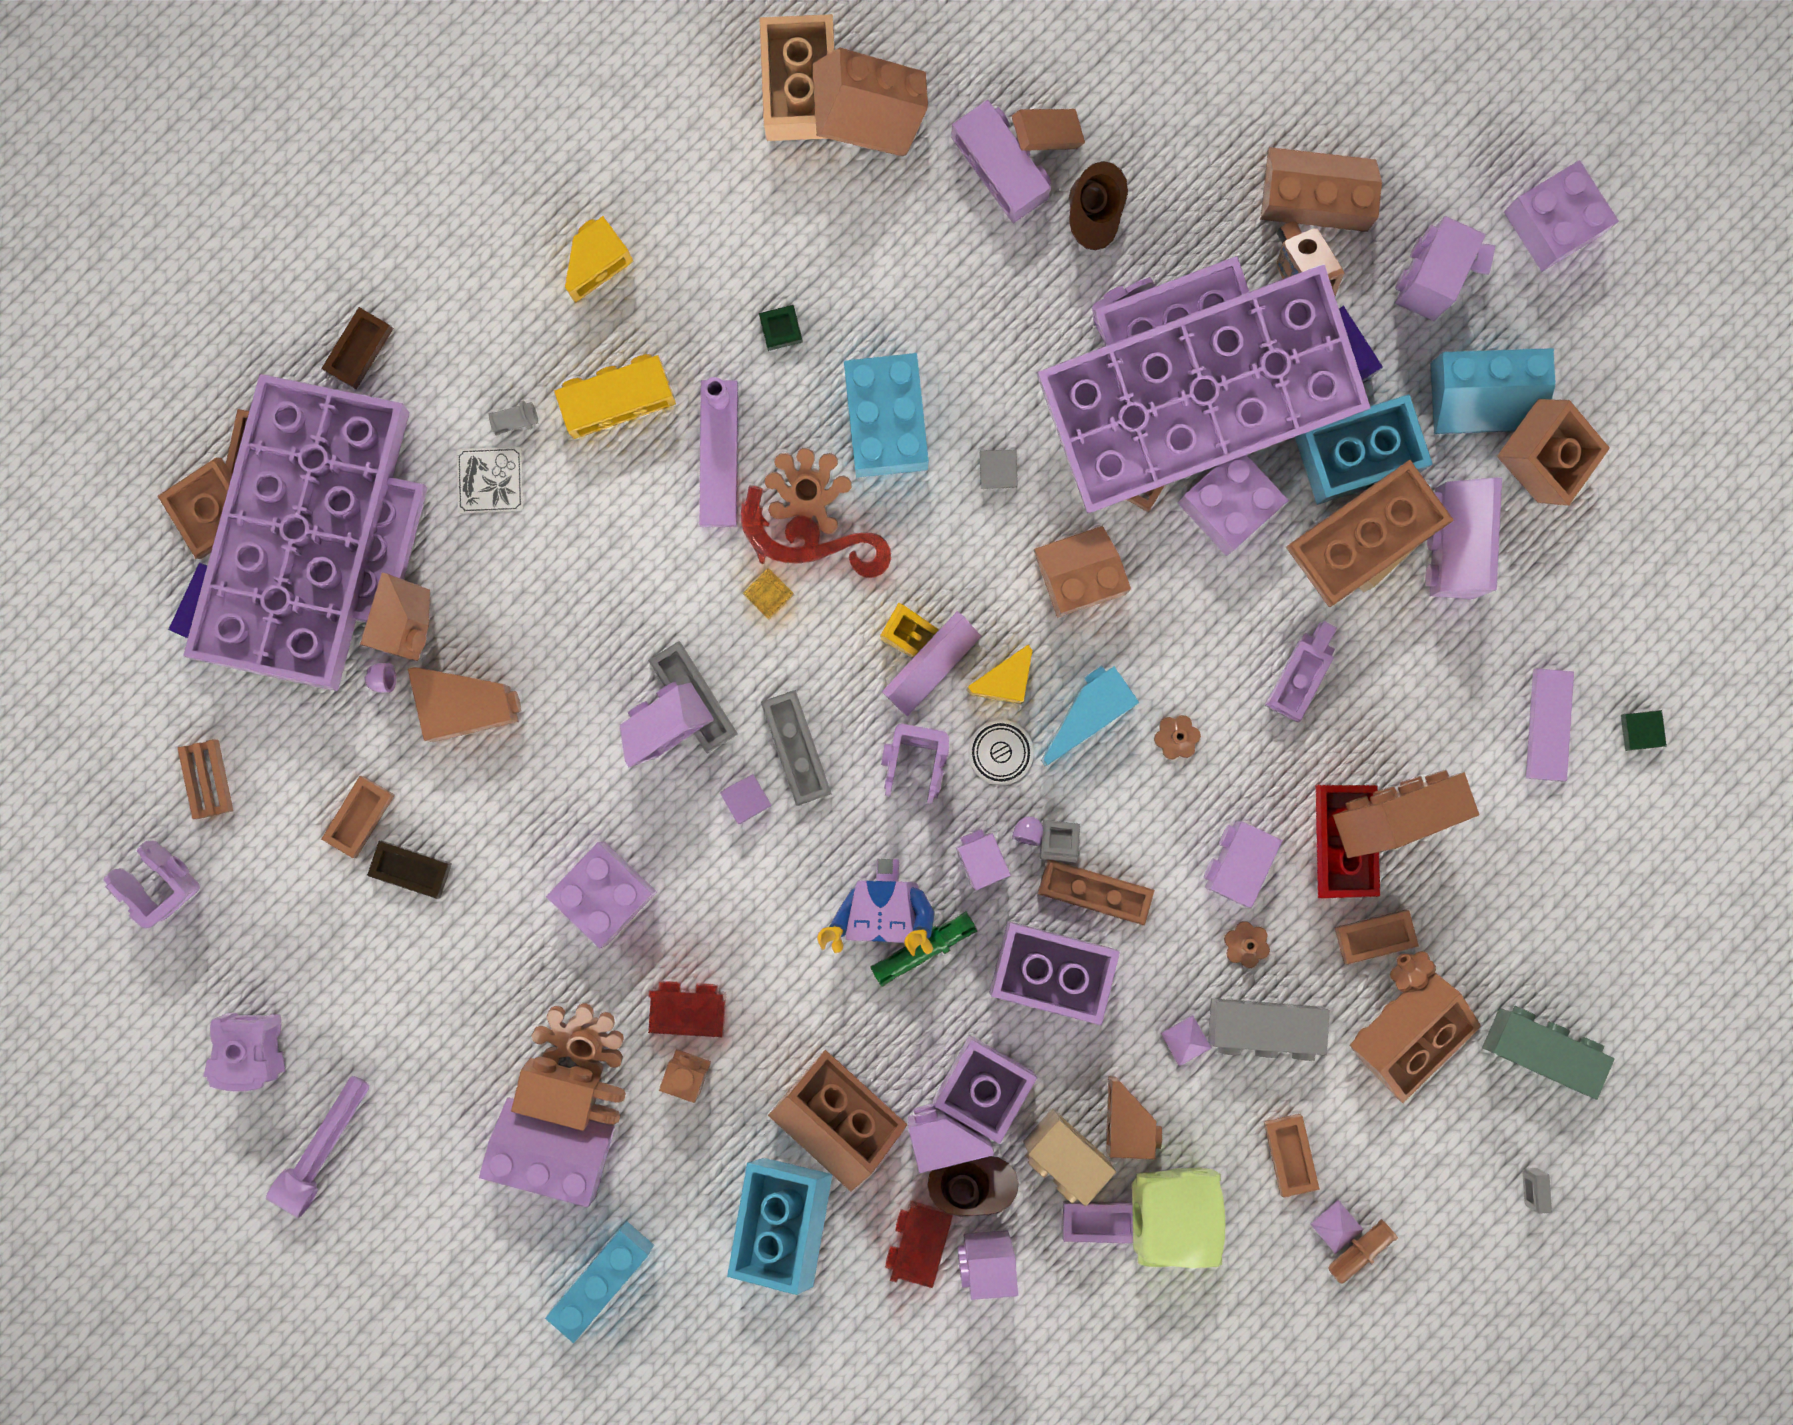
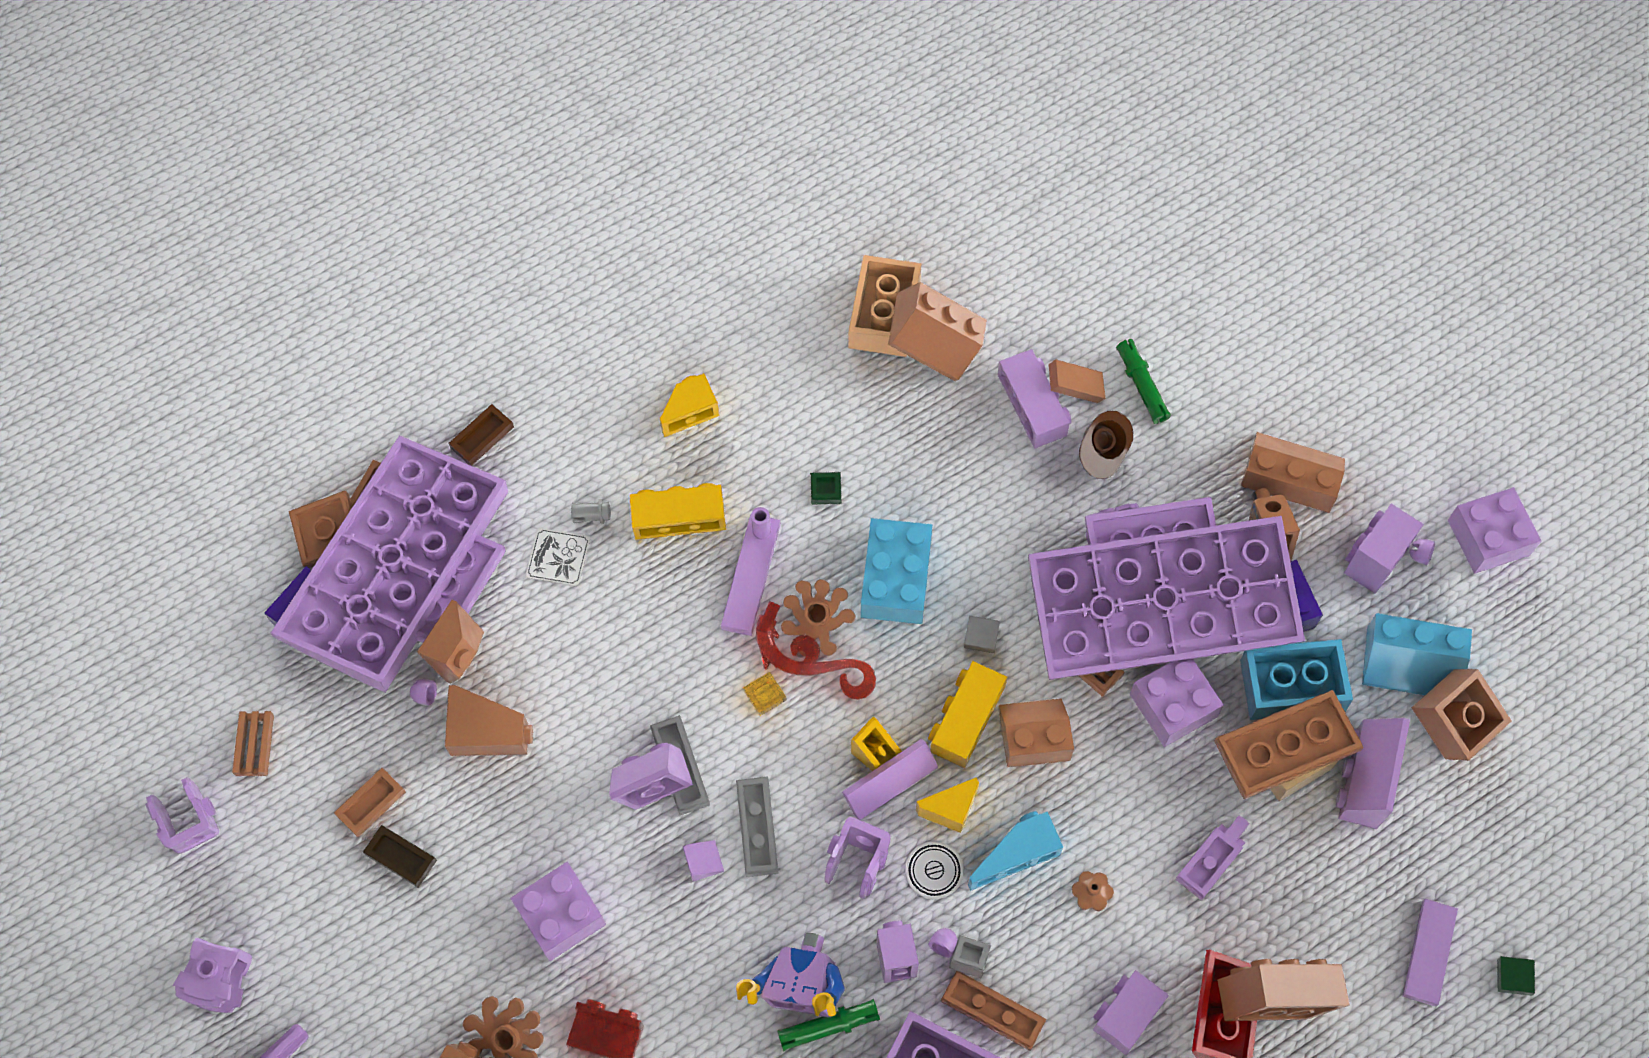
camera: 15 degrees right, 20 degrees down
(1001, 568) = (967, 713): none -> yellow brick
(1121, 104) = (1140, 375): none -> green pin

